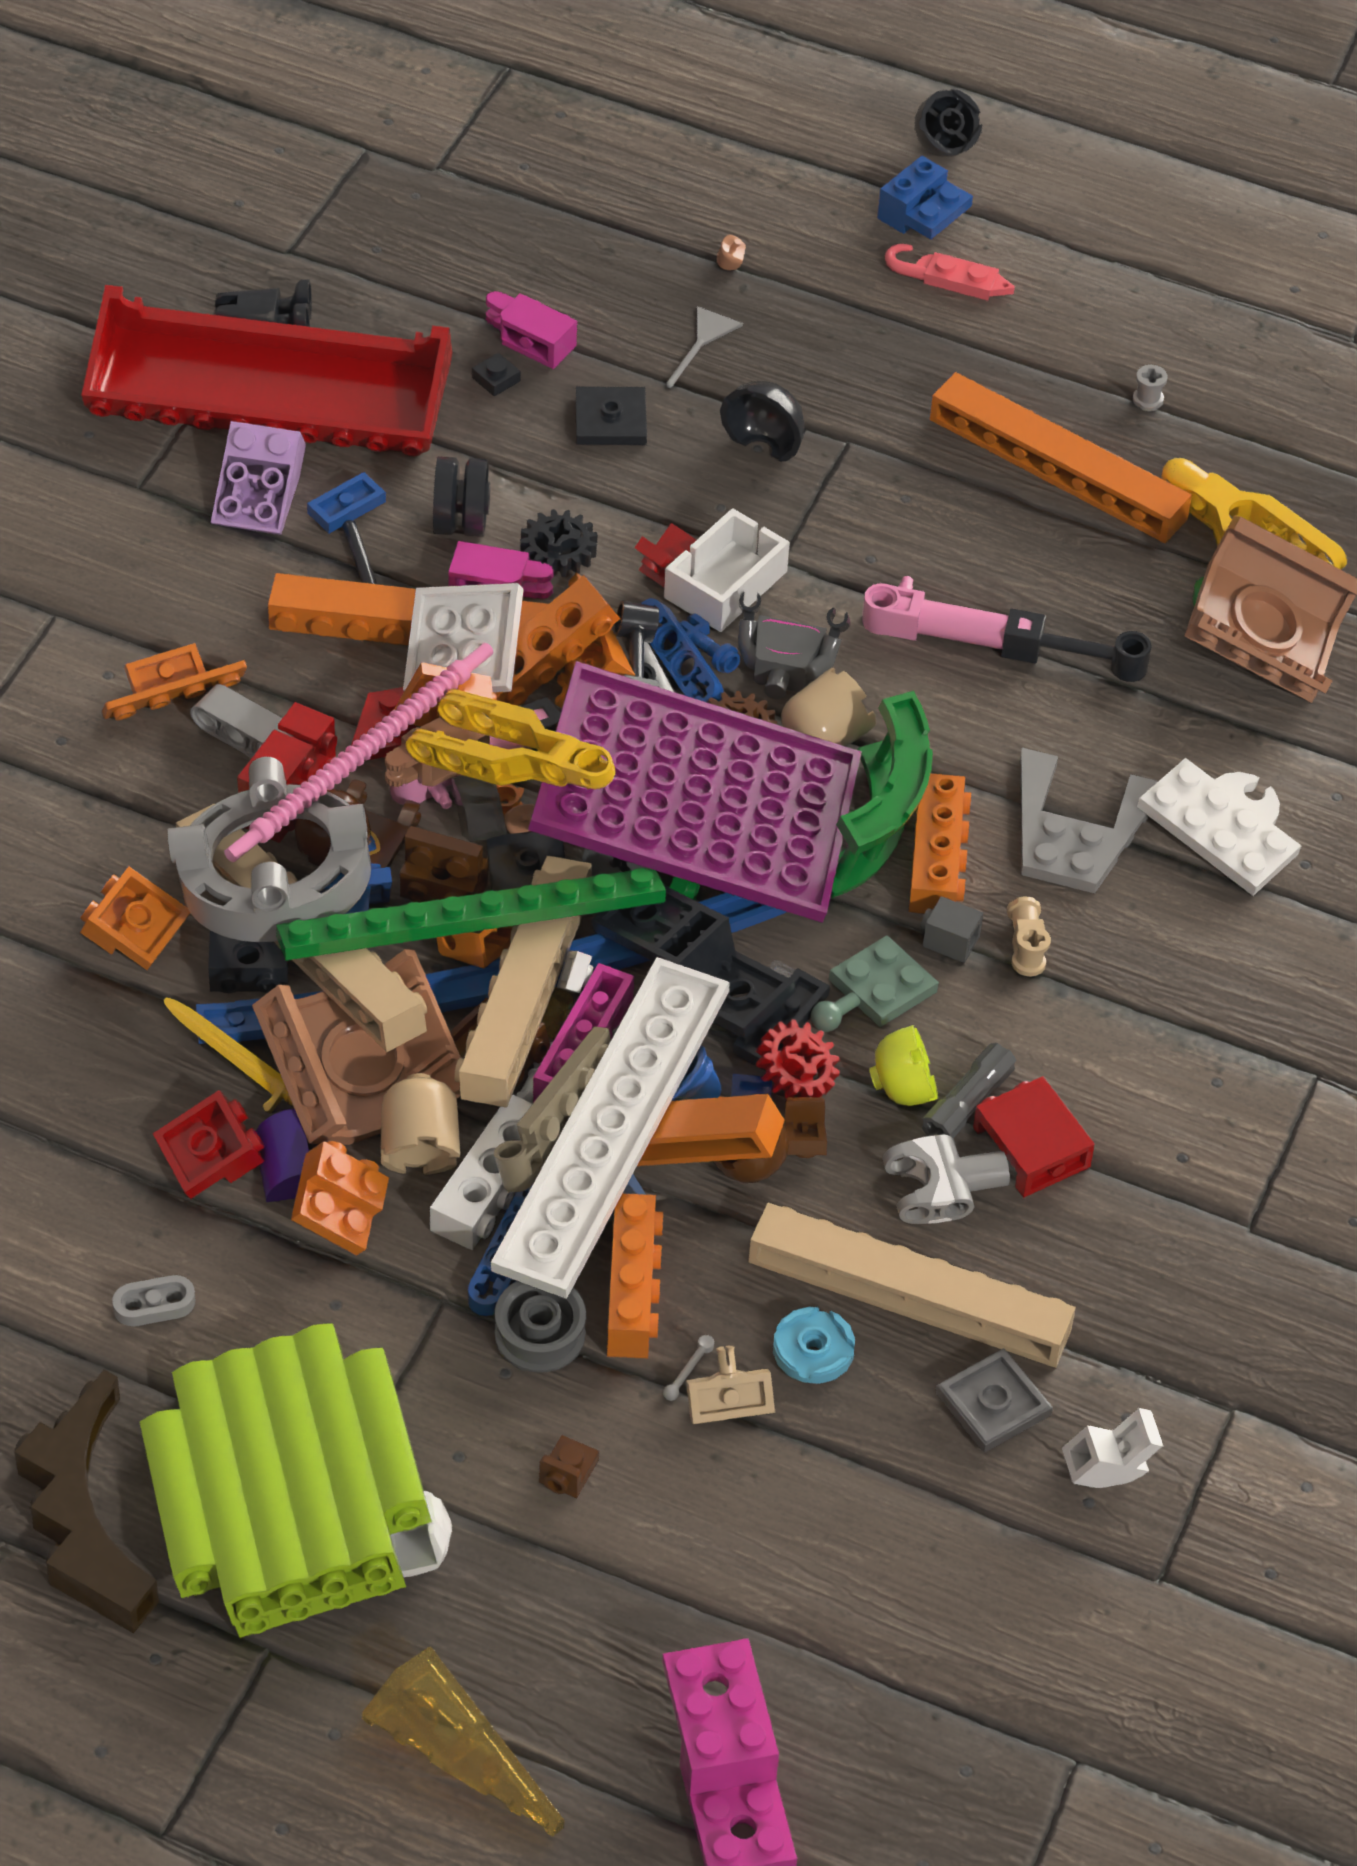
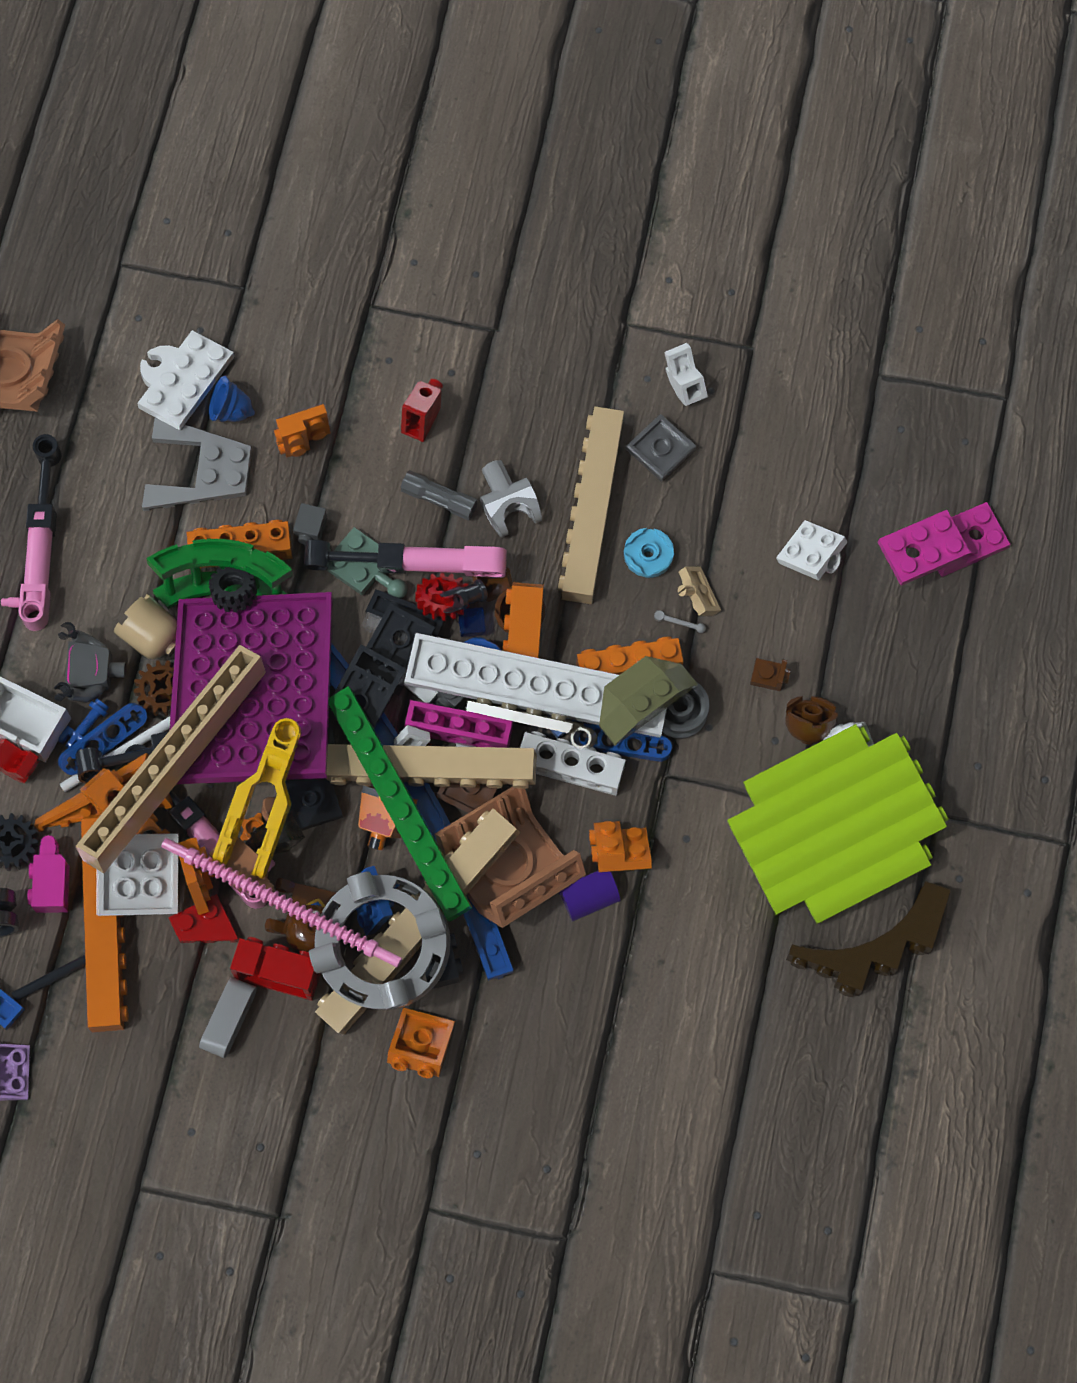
camera: 100 degrees left, 20 degrees up
(153, 1300) = (721, 945): light grey plate -> none
(168, 676) = (196, 1080): orange bracket -> none
(210, 1144) = (594, 941): red plate -> none
(234, 1052) = (520, 945): yellow sword -> none
(419, 1126) = (558, 807): tan cylinder -> none
(437, 1717) = (960, 704): clear yellow wedge -> none
(441, 867) = (334, 859): reddish brown brick -> none
(472, 1485) = (810, 719): none -> reddish brown cylinder
(558, 1243) = (641, 695): none -> olive wedge
(600, 658) = (171, 759): none -> tan brick
(760, 1567) = (813, 550): none -> white plate
(781, 1067) = (466, 595): none -> black piece
(850, 783) = (233, 599): none -> black tyre
(865, 1007) = (398, 559): none -> piece
(904, 1068) = (435, 531): neon yellow cylinder -> none
(1029, 937) = (306, 478): tan connector -> none
(1035, 1134) = (463, 452): red panel -> none
(1101, 931) = (298, 428): none -> orange plate
(1116, 1089) = (421, 409): none -> red torso
(1167, 865) = (229, 402): none -> blue piece

